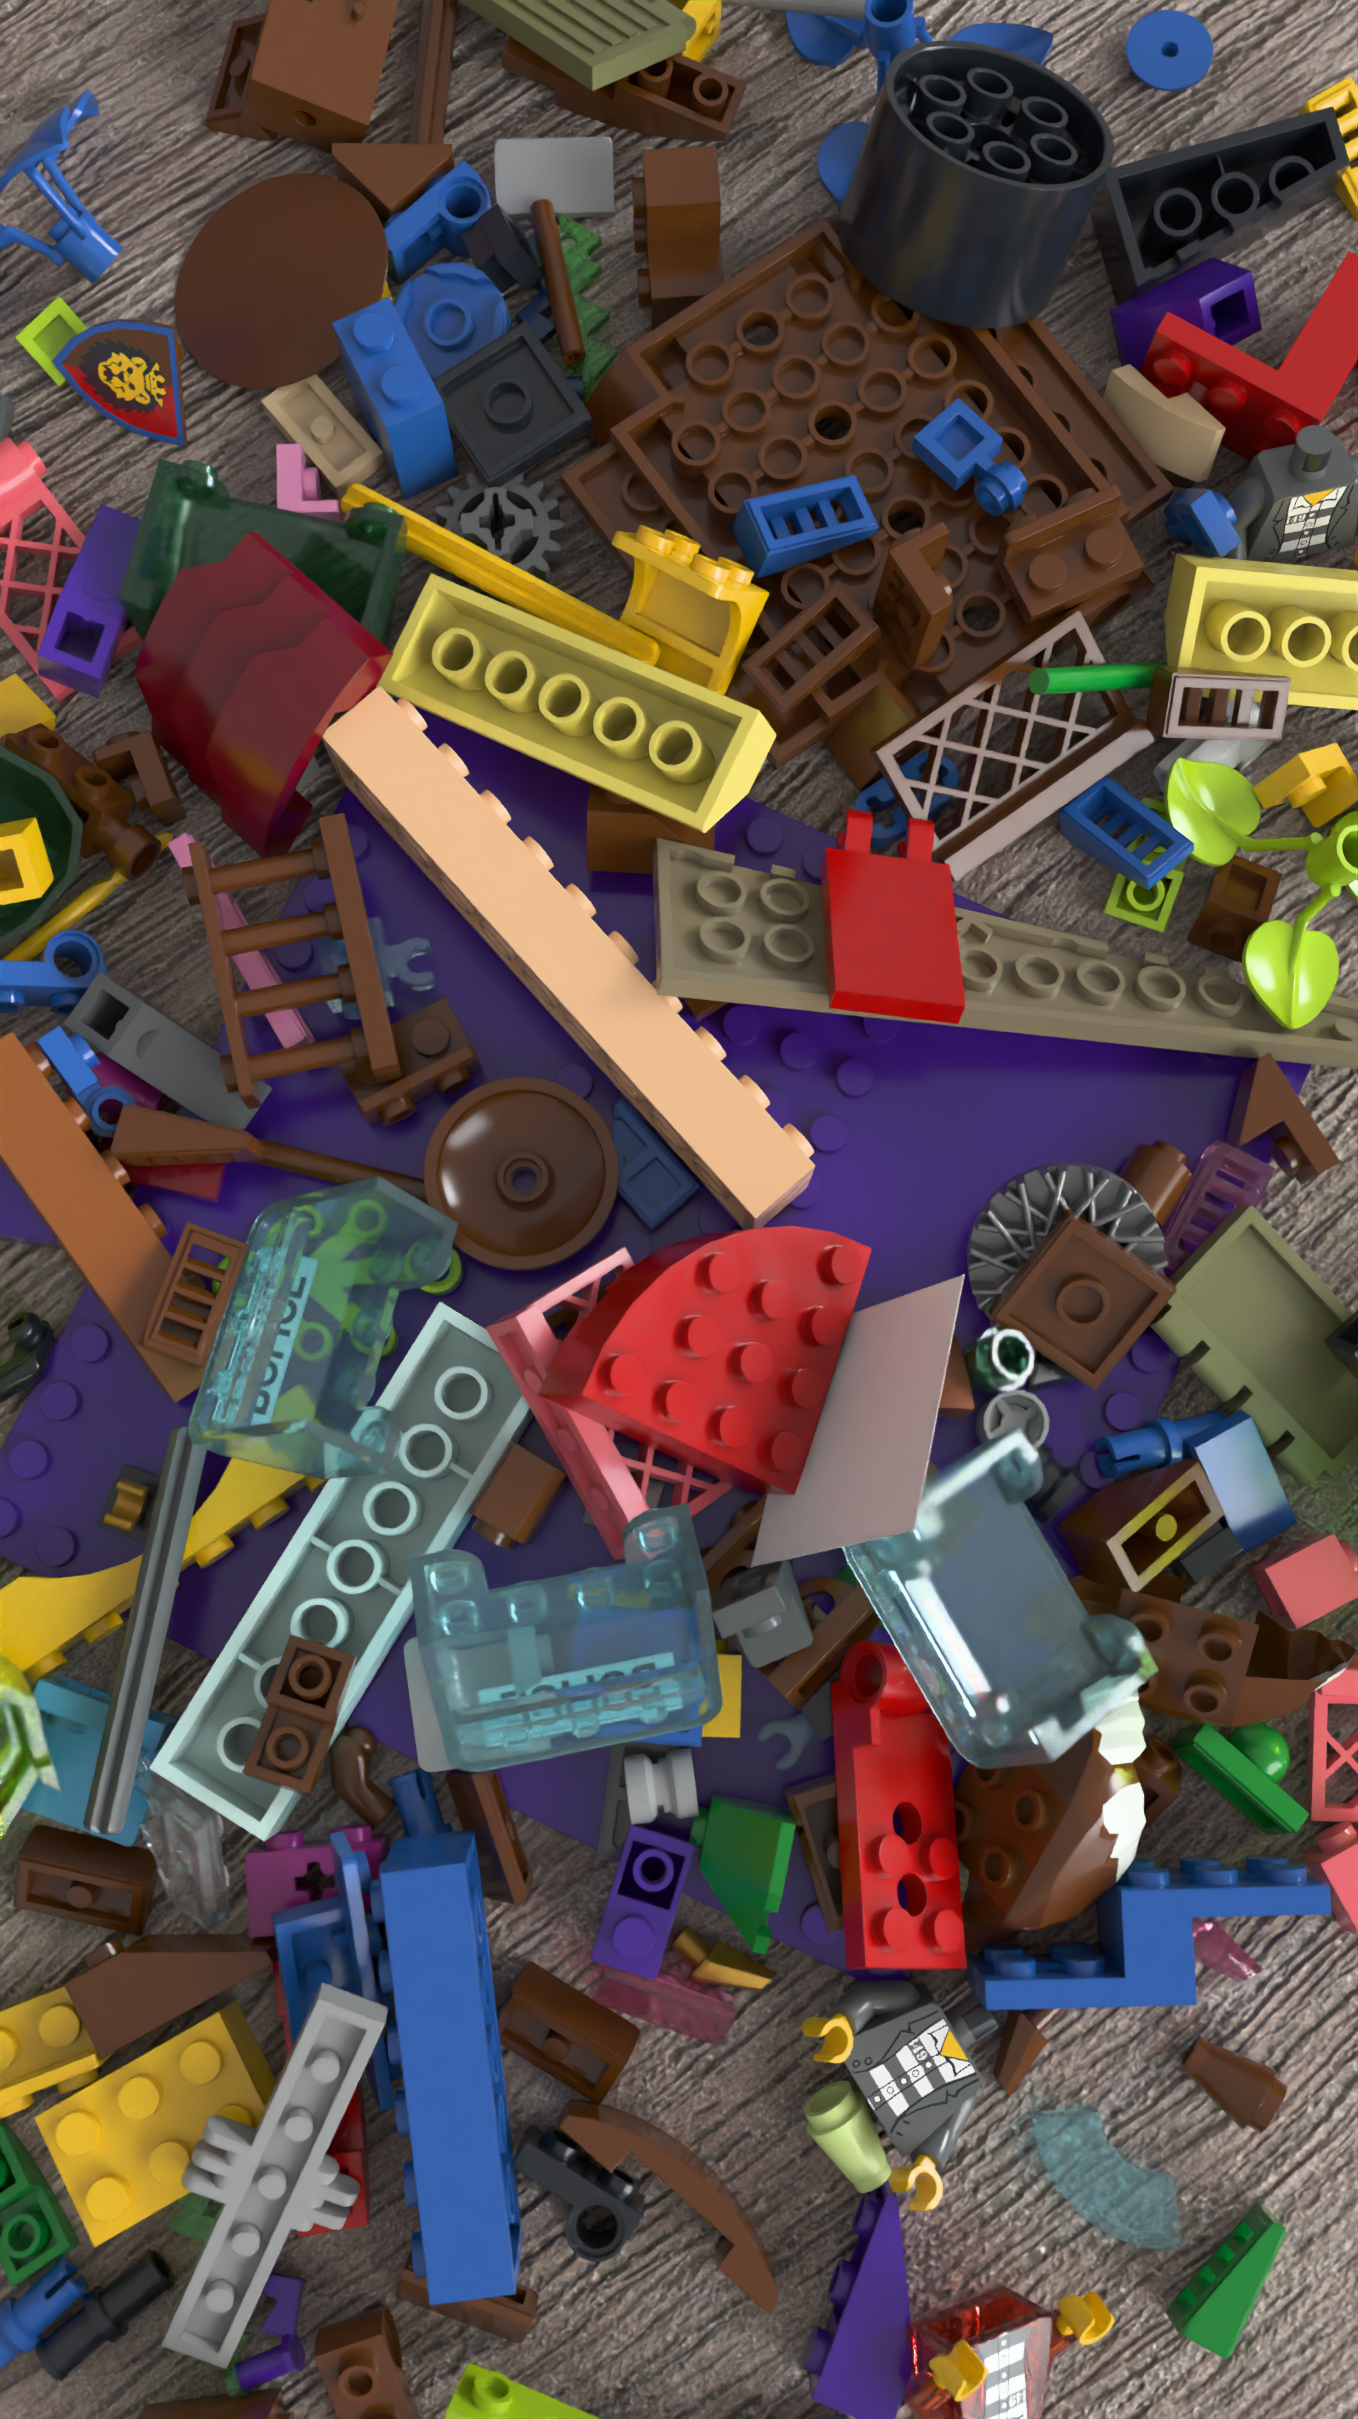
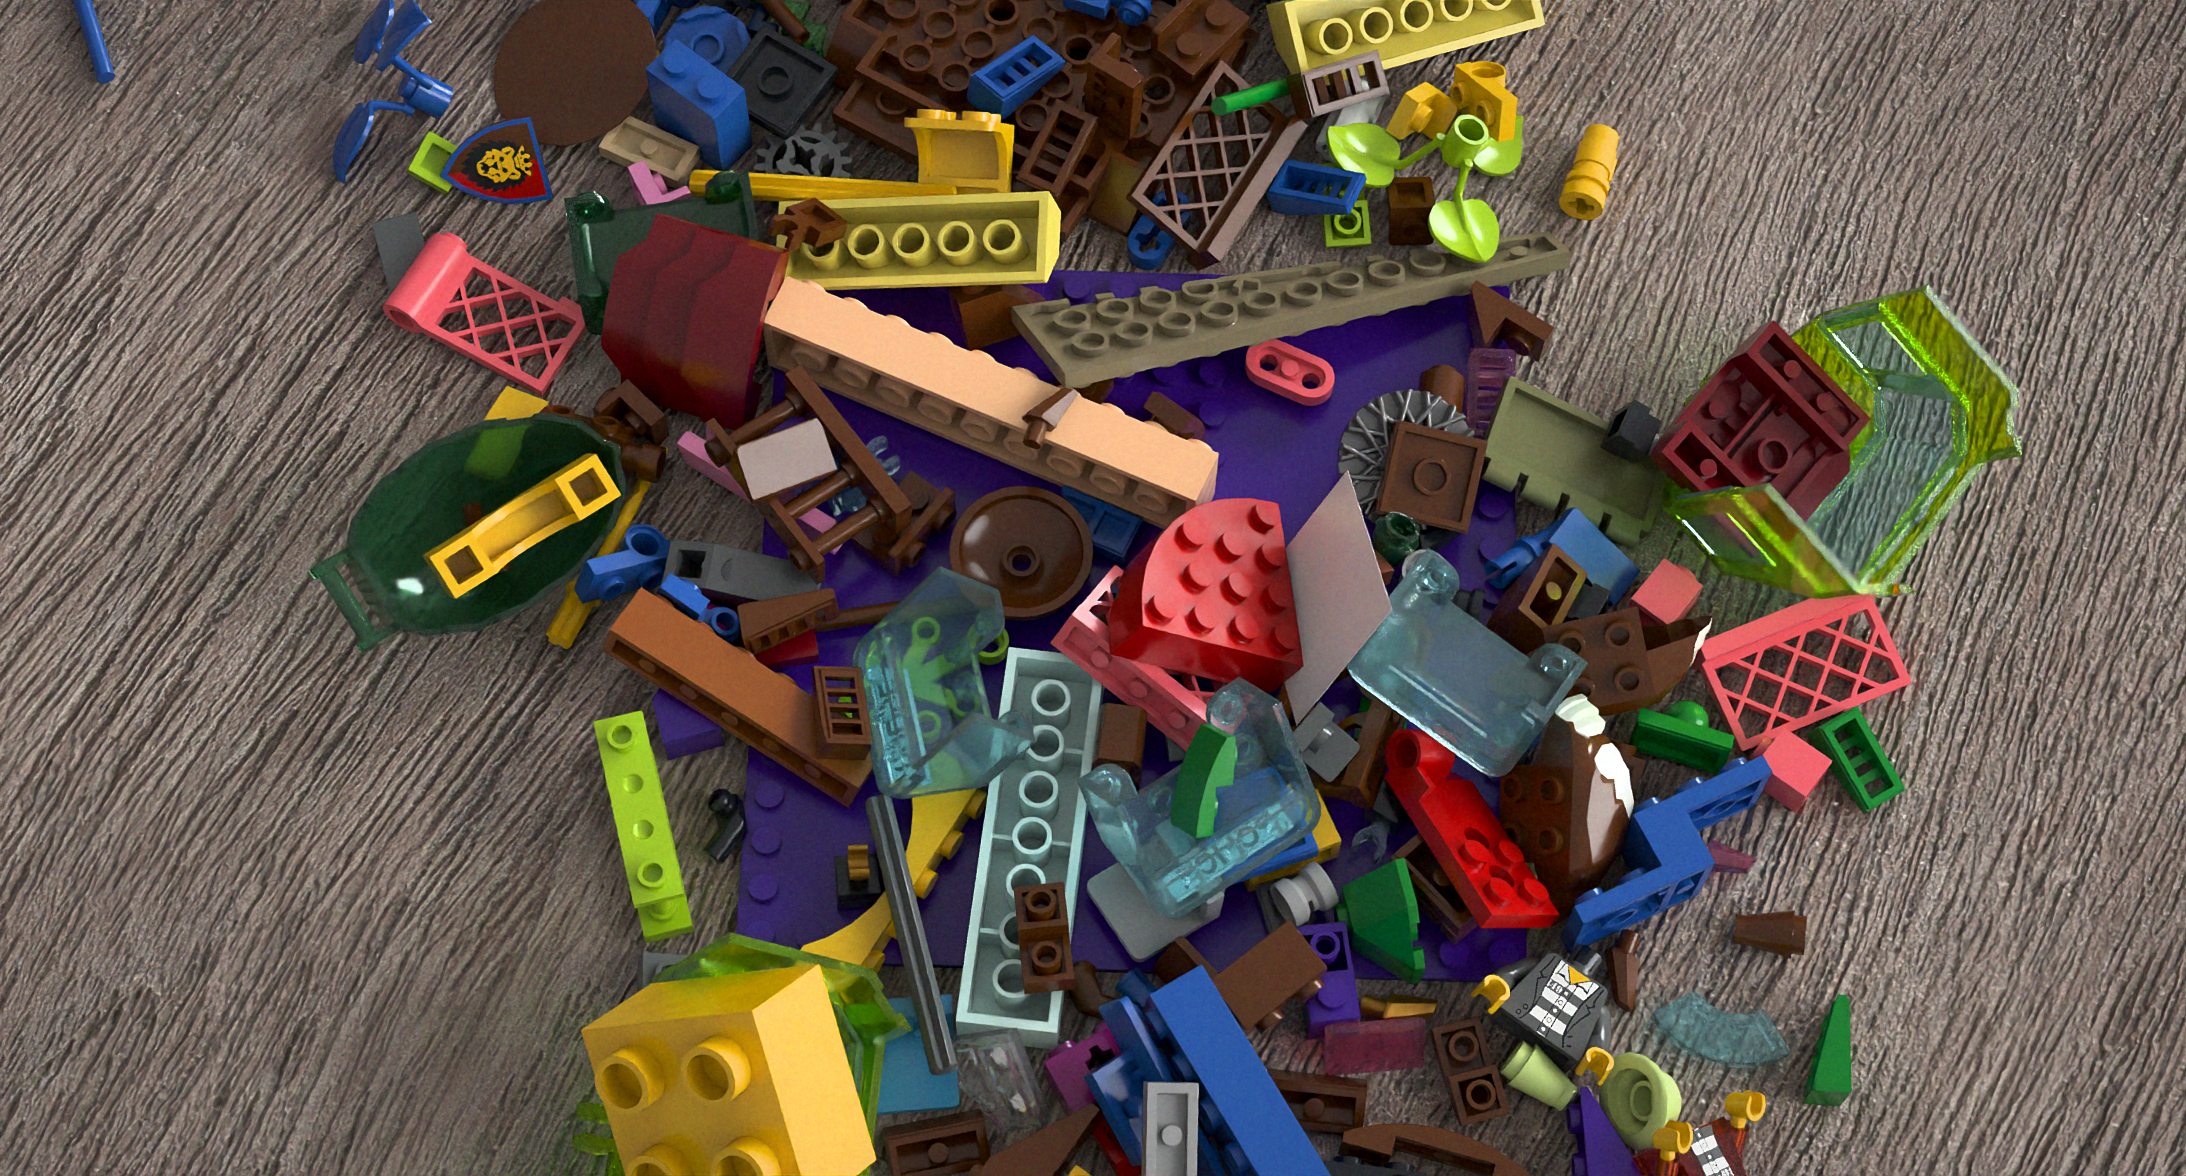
camera: 25 degrees left, 15 degrees down
(88, 612) = (551, 315): dark purple slope -> none
(257, 940) = (782, 460): none -> slope
(440, 619) = (808, 223): none -> reddish brown plate
(553, 1899) = (1270, 978): none -> reddish brown brick
(578, 1614) = (1205, 766): none -> green slope
(616, 1022) = (1046, 416): none -> reddish brown bar
(768, 2086) = (1468, 1071): none -> reddish brown slope
(788, 1081) = (1174, 417): none -> reddish brown slope
(890, 926) = (1193, 295): red tile -> none
(959, 2243) = (1638, 1099): none -> yellowish green hat
(980, 1064) = (1291, 371): none -> coral plate

